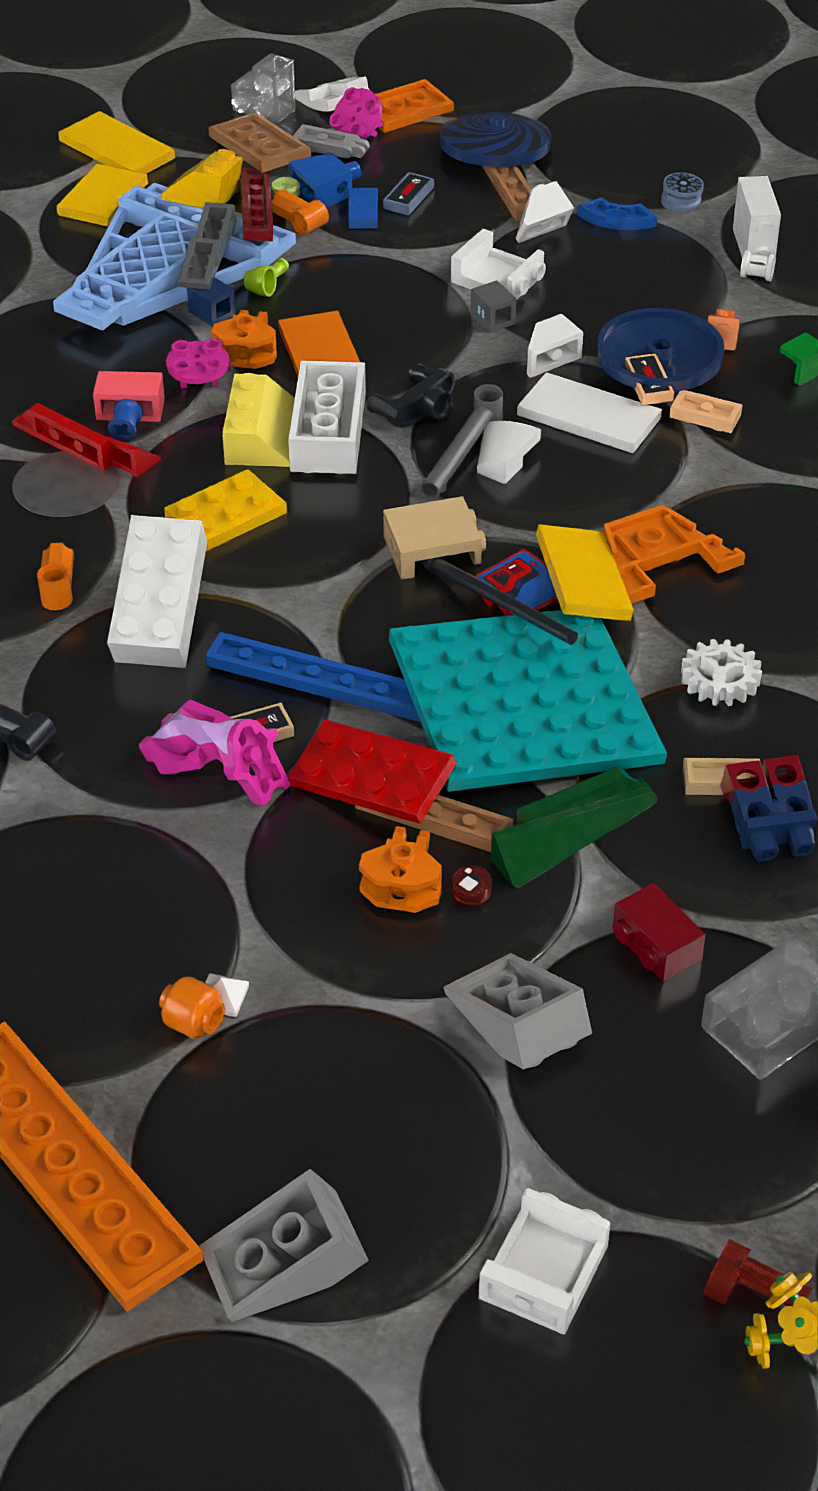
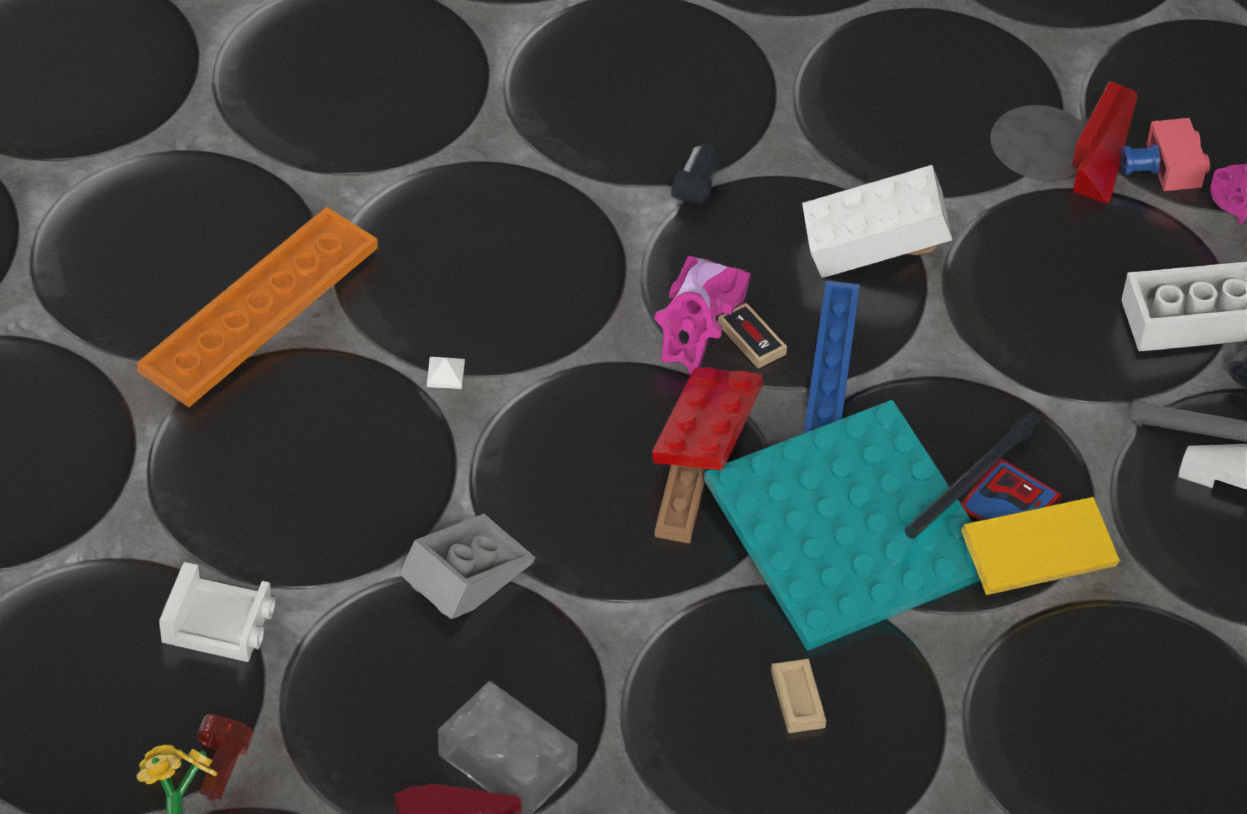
camera: 75 degrees right, 5 degrees up
(56, 577) = (888, 158): orange piece -> none
(192, 1007) = (415, 348): orange head -> none
(230, 507) = (1043, 262): yellow plate -> none
(257, 422) = (1175, 244): light yellow slope -> none
(283, 1249) = (201, 450): light grey slope -> none
(401, 870) = (597, 459): orange hinge -> none
(431, 532) = (1055, 419): tan panel -> none
(471, 885) = (605, 518): clear red tile -> none
(567, 823) = (697, 578): dark green wedge -> none
(657, 539) = (1119, 601): orange wing -> none
(658, 932) = (575, 654): dark red brick -> none
(721, 672) = (953, 676): white gear -> none
(771, 806) = (753, 727): dark blue hips -> none

